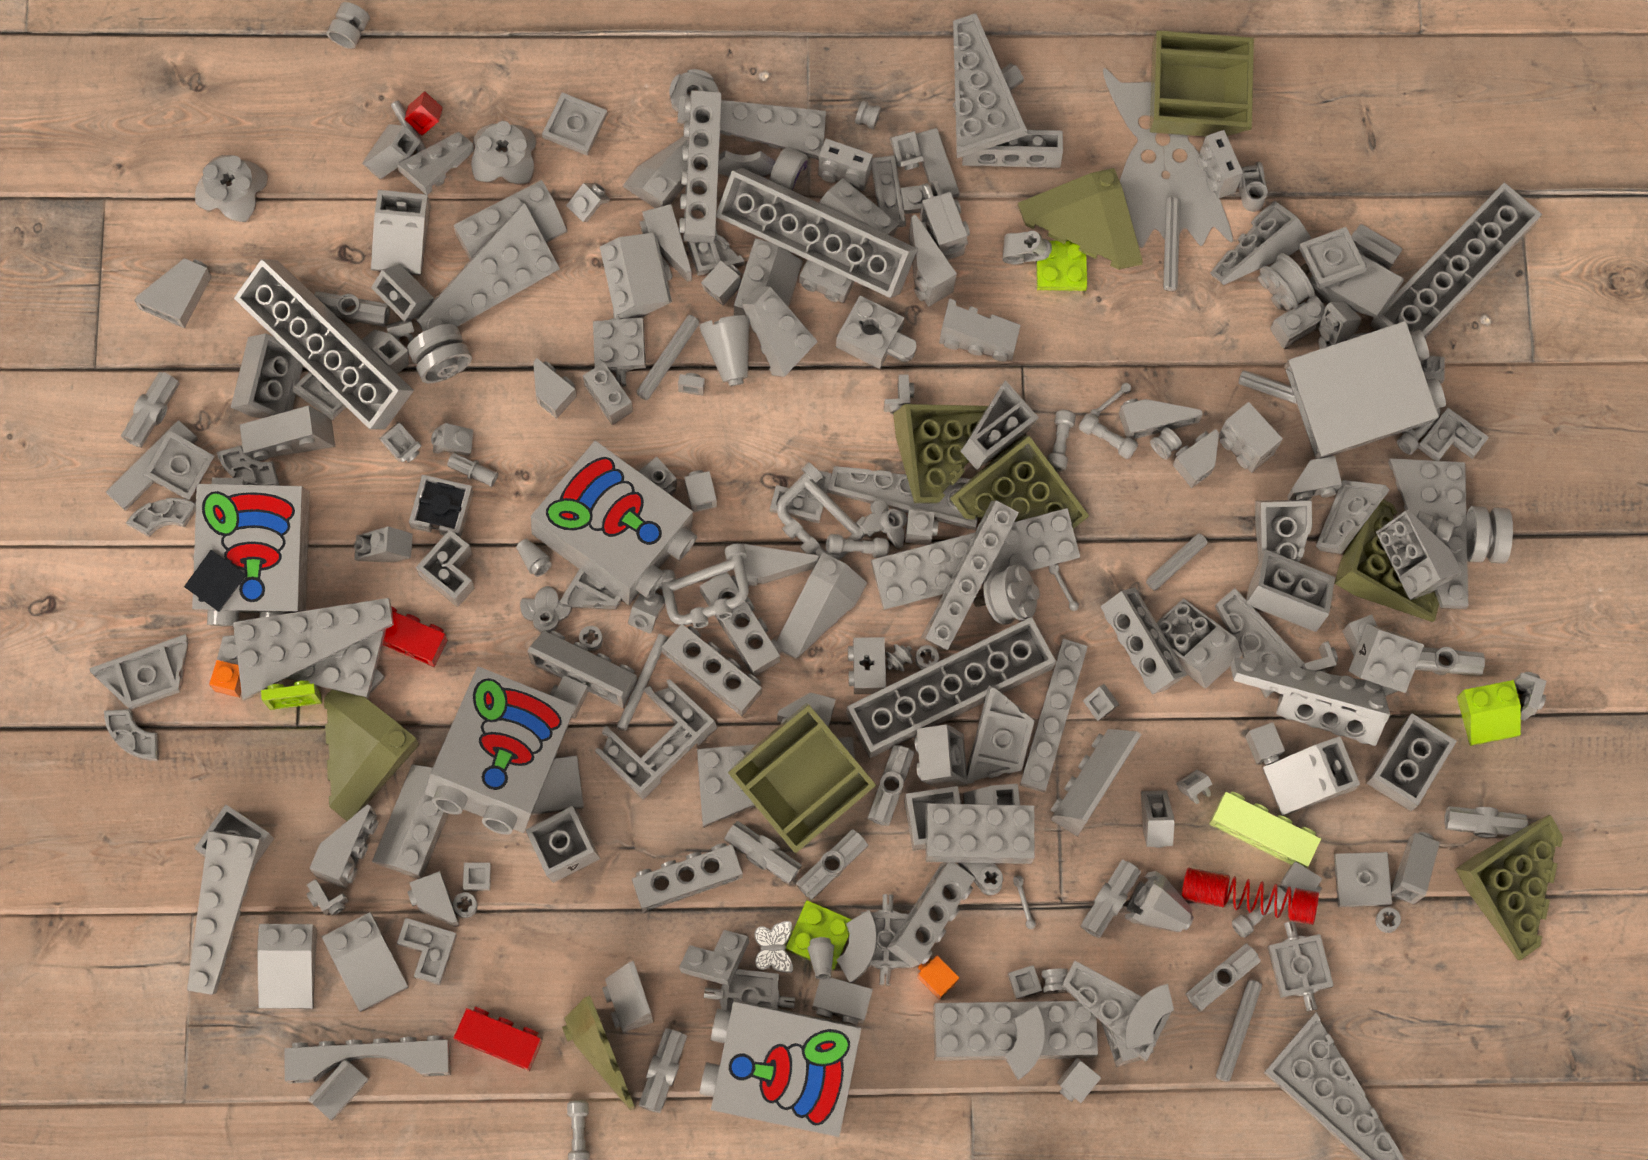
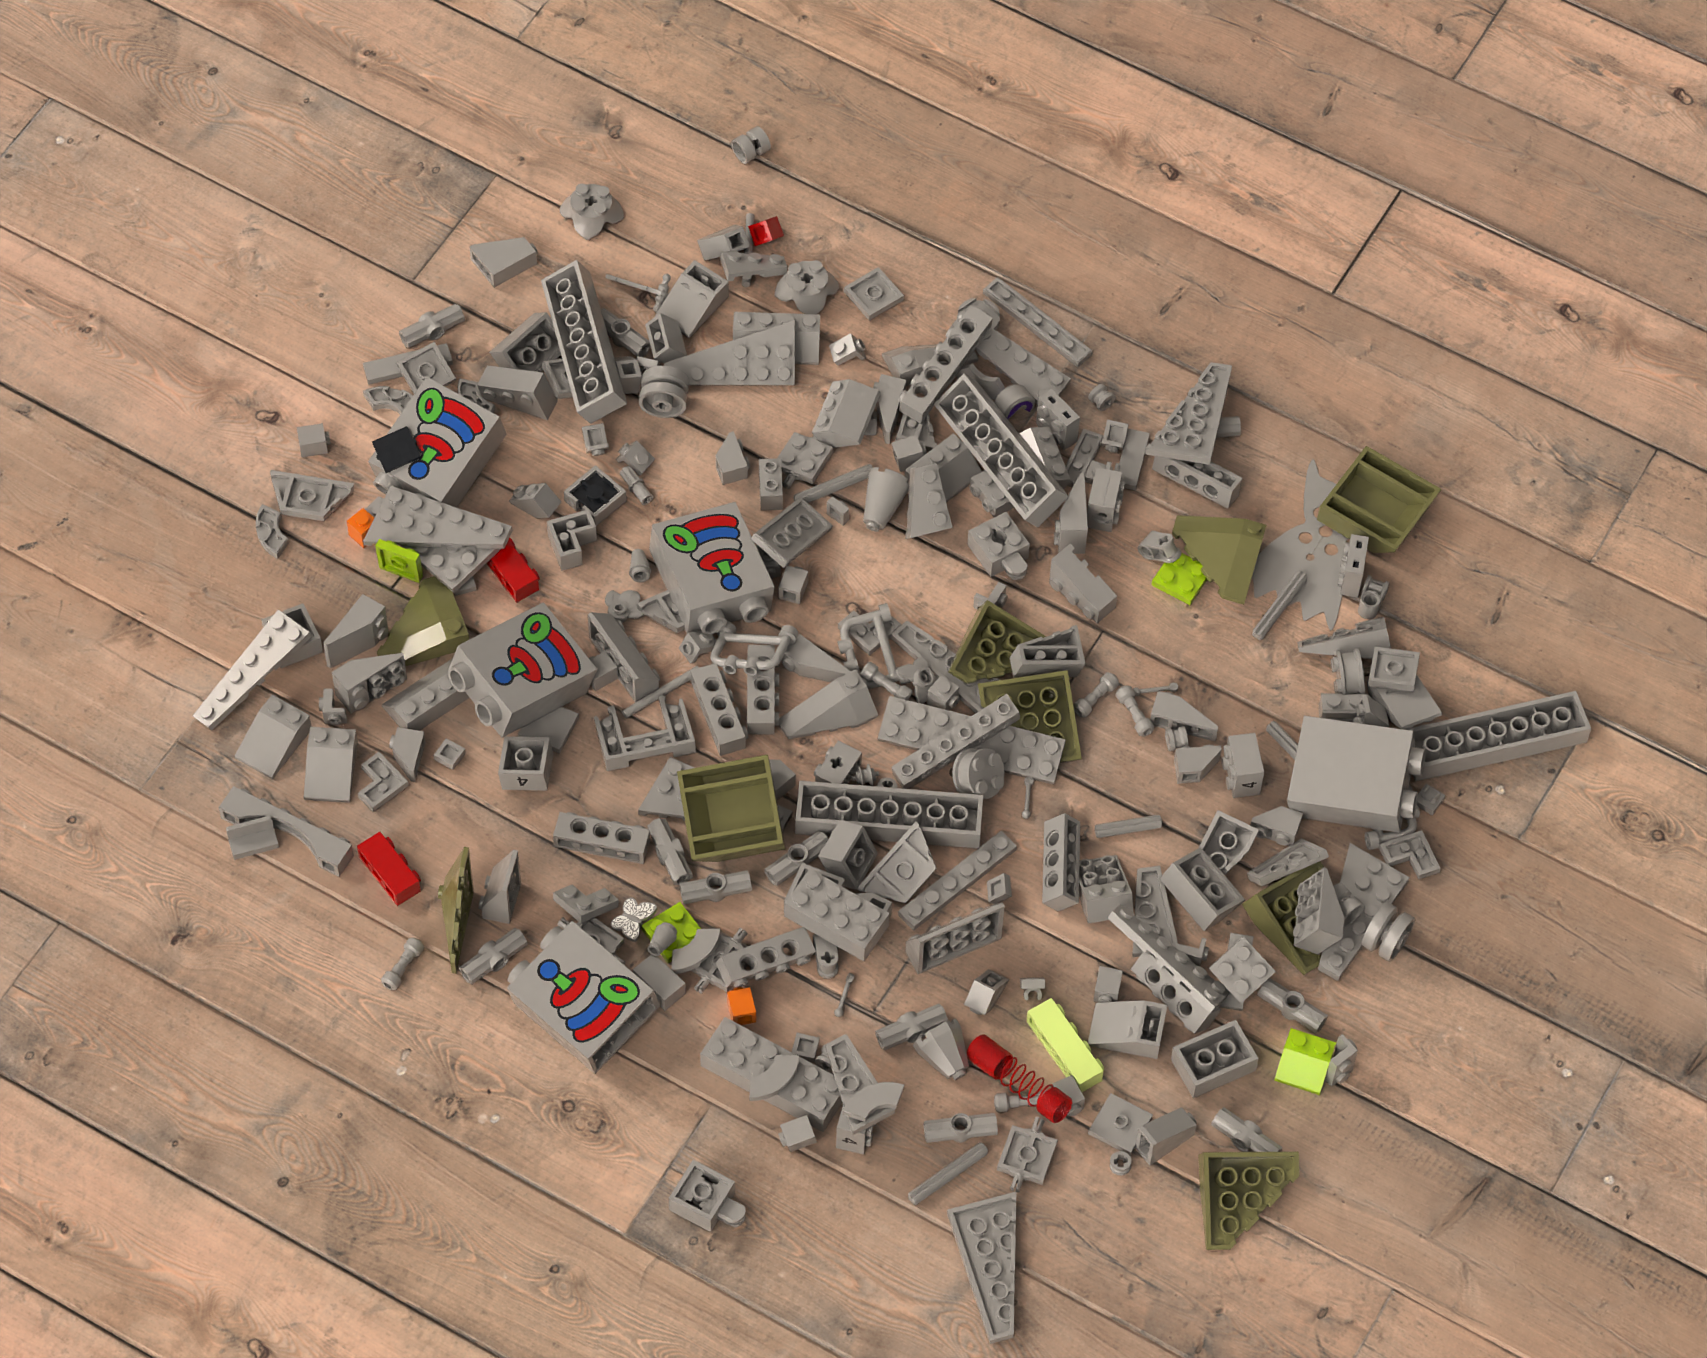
camera: 35 degrees right, 15 degrees down
(111, 608) = (313, 440): none -> light grey brick
(300, 798) = (357, 631): none -> light grey slope
(362, 241) = (661, 293): none -> light grey piece
(471, 909) = (430, 774): light grey bush -> none
(585, 633) = (643, 636): light grey bush -> none
(666, 438) = (791, 532): none -> light grey tile
(752, 65) = (1037, 322): none -> light grey tile
(1375, 246) = (1442, 690): light grey panel -> none

